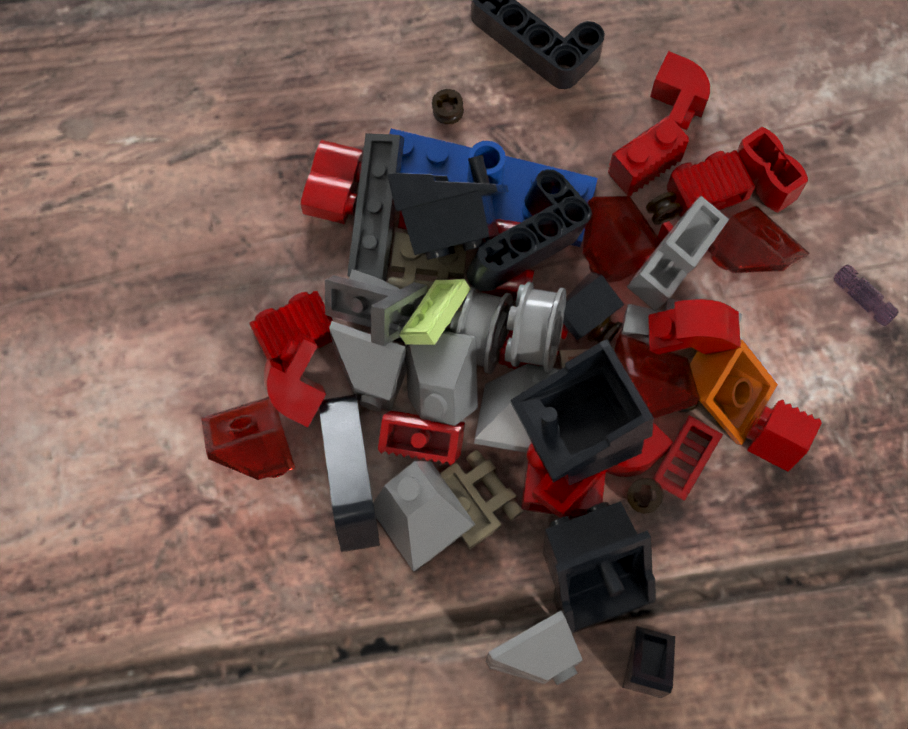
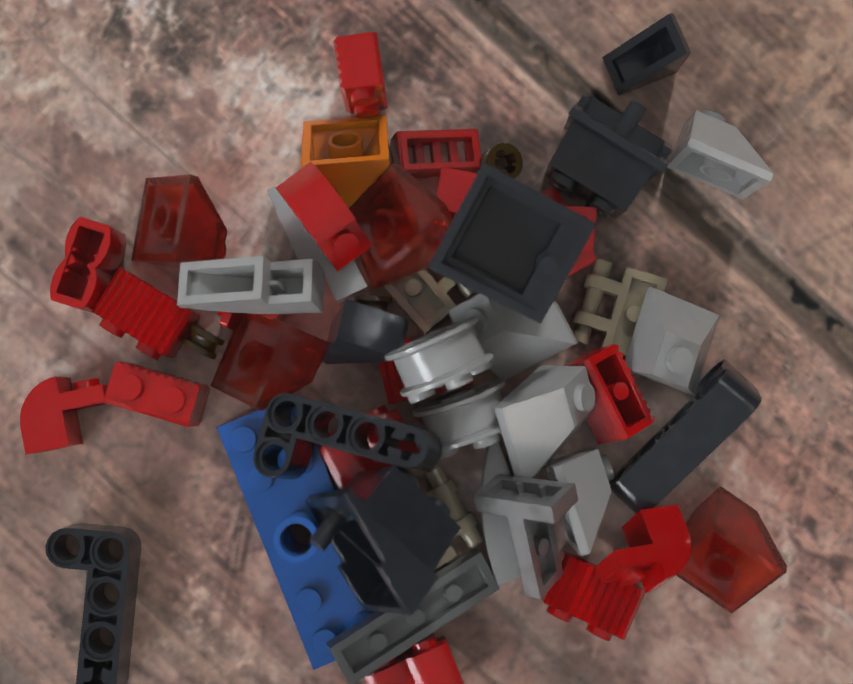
camera: 125 degrees left, 15 degrees up
(435, 312) = (496, 465): yellowish green plate -> none
(454, 99) = (258, 633): dark brown bush -> none
(866, 295) = (153, 99): clear purple axle -> none

